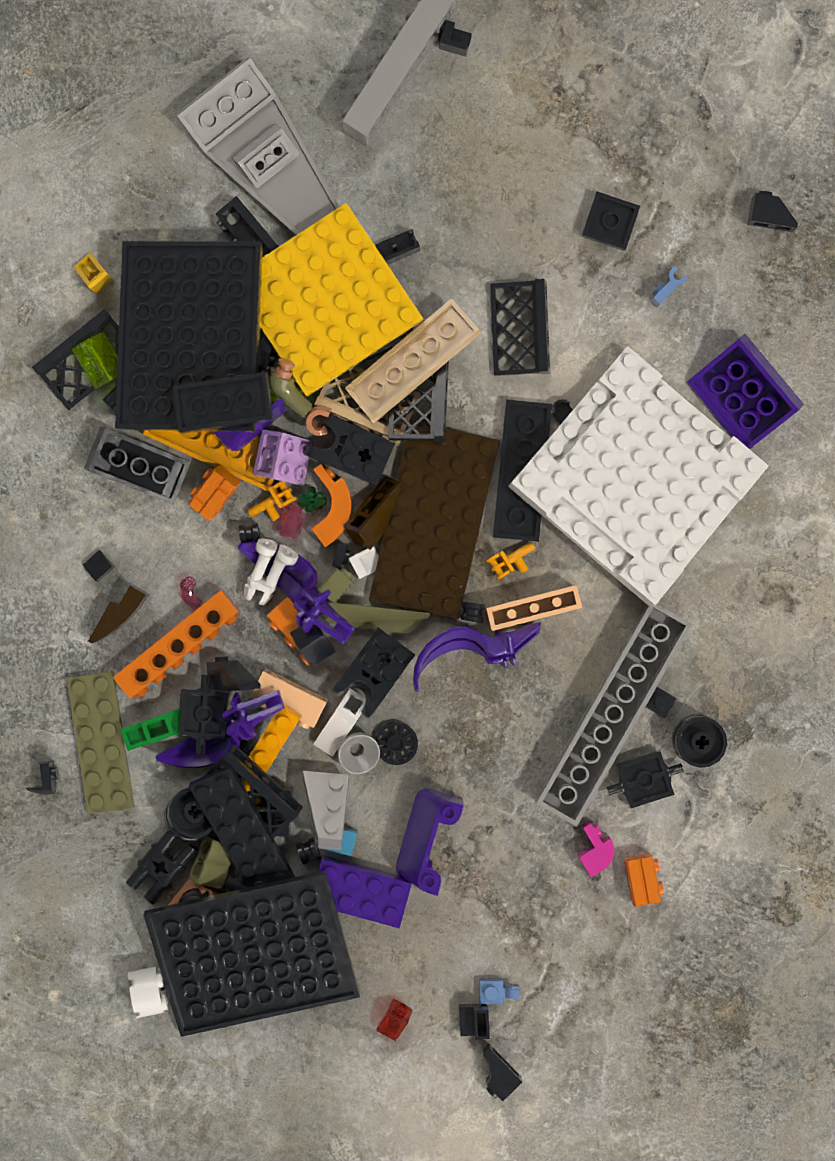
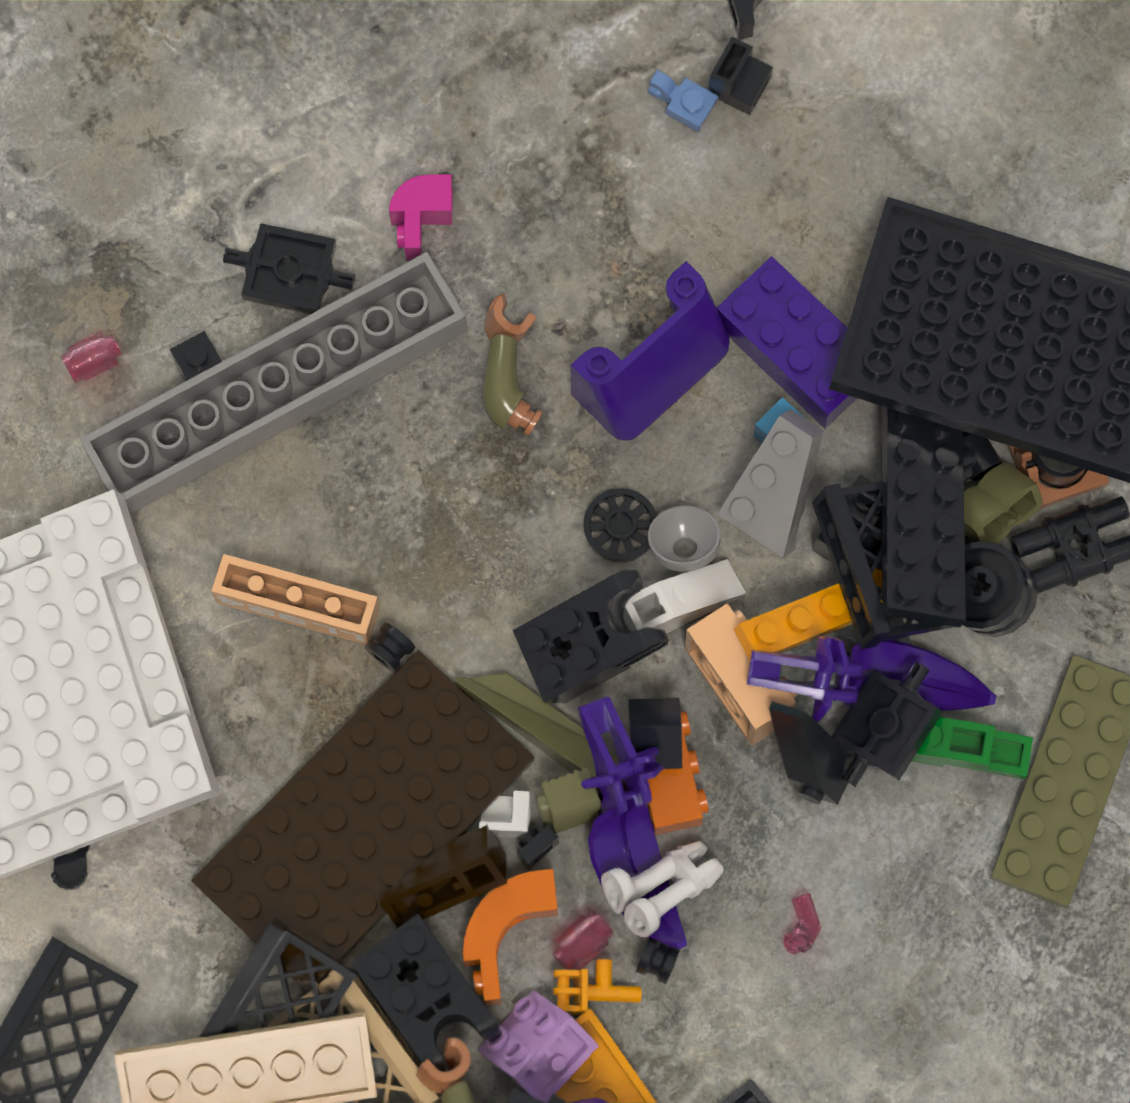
camera: 145 degrees left, 15 degrees down
(98, 565) = (922, 1051): black slope -> none
(118, 614) = (931, 955): dark brown slope -> none
(127, 677) = (968, 829): orange brick -> none
(214, 492) = (675, 1054): orange brick -> none
(308, 850) = (843, 443): black wheel -> none
(311, 500) = (531, 957): dark green plant -> none
(394, 1020) = (854, 141): clear red bracket -> none
(493, 650) = (393, 569): dark purple piece -> none
(496, 776) = (501, 389): none -> piece
(506, 561) = (294, 693): light orange arm -> none
(524, 433) = (155, 860): black plate -> none
(642, 879) = (380, 133): orange brick -> none
(712, 745) = (176, 275): black wheel -> none
(716, 673) = (91, 357): none -> clear pink brick

